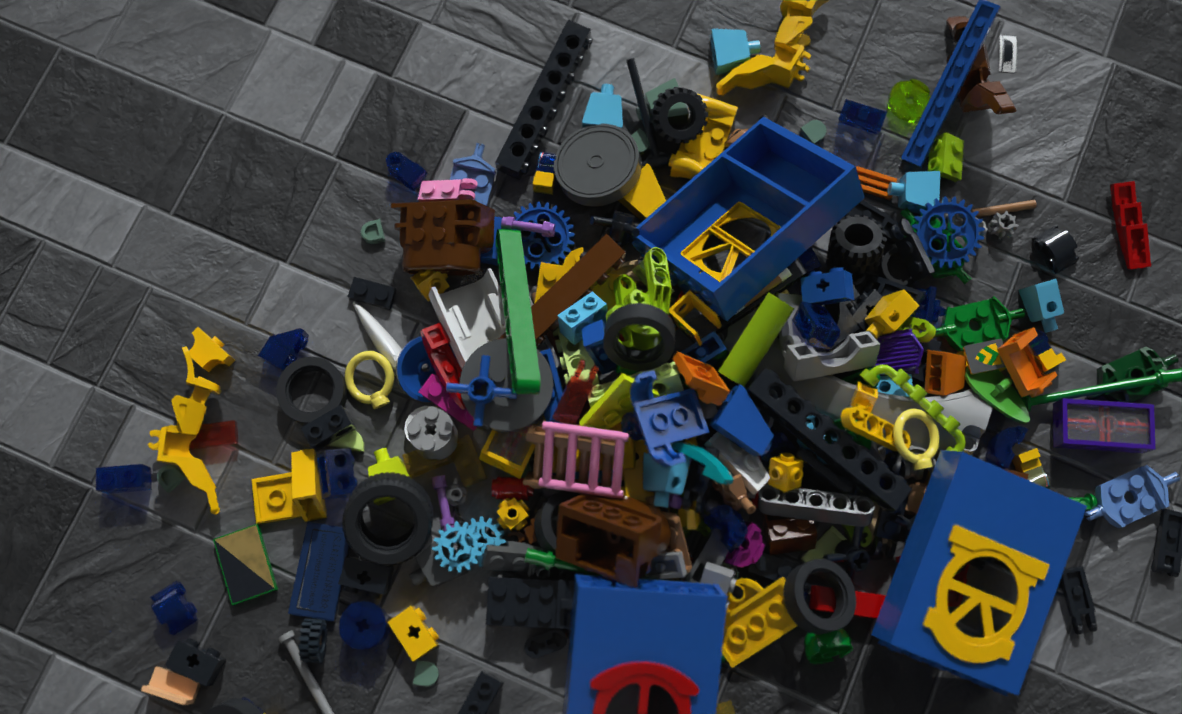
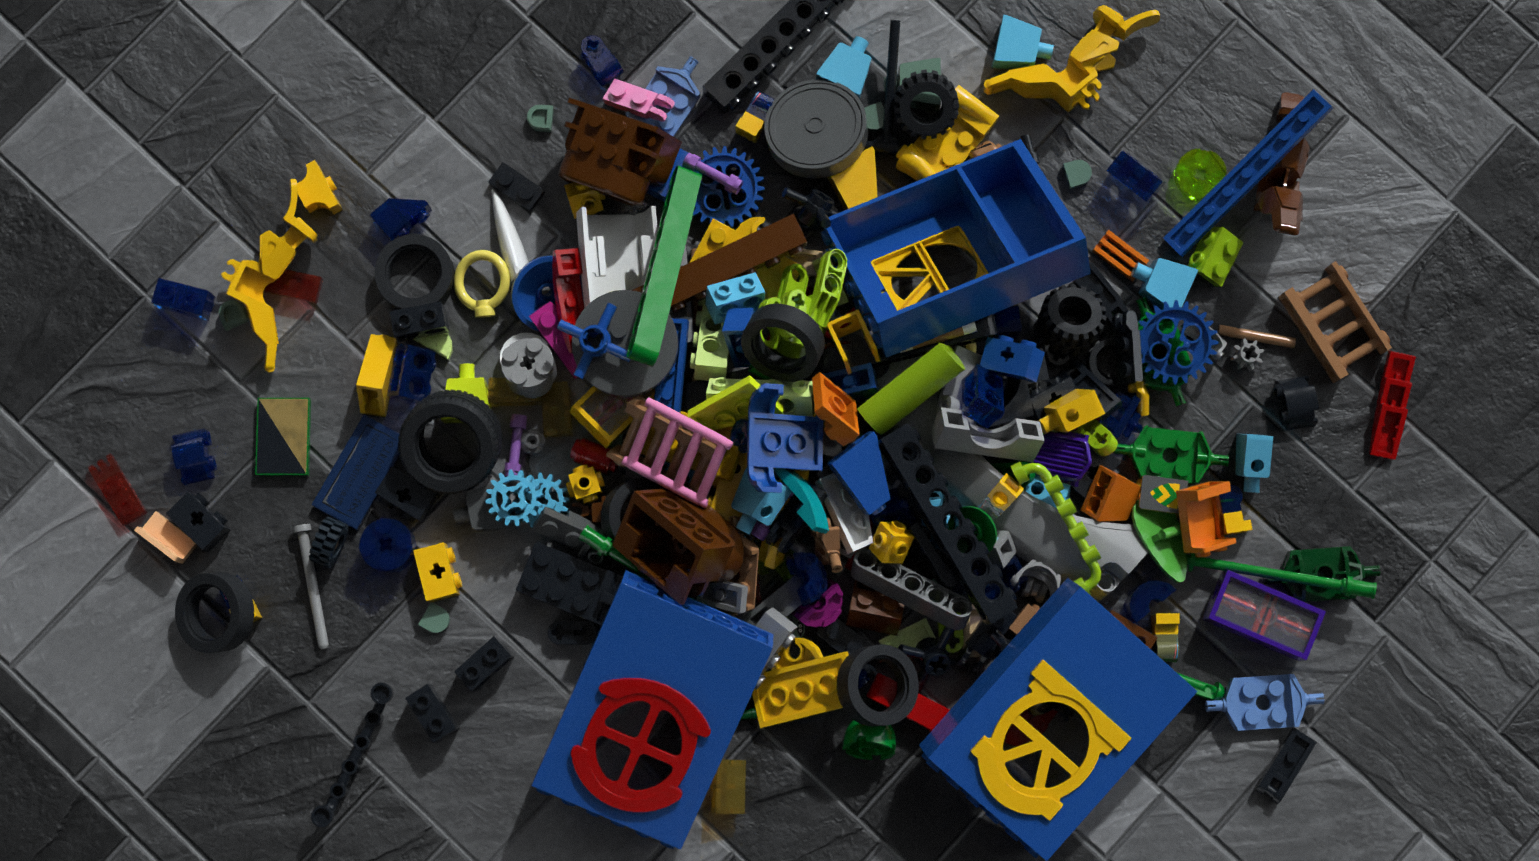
camera: 15 degrees right, 5 degrees up
(118, 660) = (118, 490): none -> clear red hinge
(274, 498) = (336, 377): yellow tile -> none
(574, 395) = (693, 381): clear red hinge -> none
(875, 434) = (1005, 528): yellow beam -> none
(922, 460) = (1040, 581): light yellow piece -> none
(932, 281) = (1142, 393): none -> yellow arm
(1008, 54) = (1337, 158): sticker -> none
(1047, 191) = (1322, 344): none -> medium nougat fence
(1078, 598) = (1160, 787): black hinge -> none

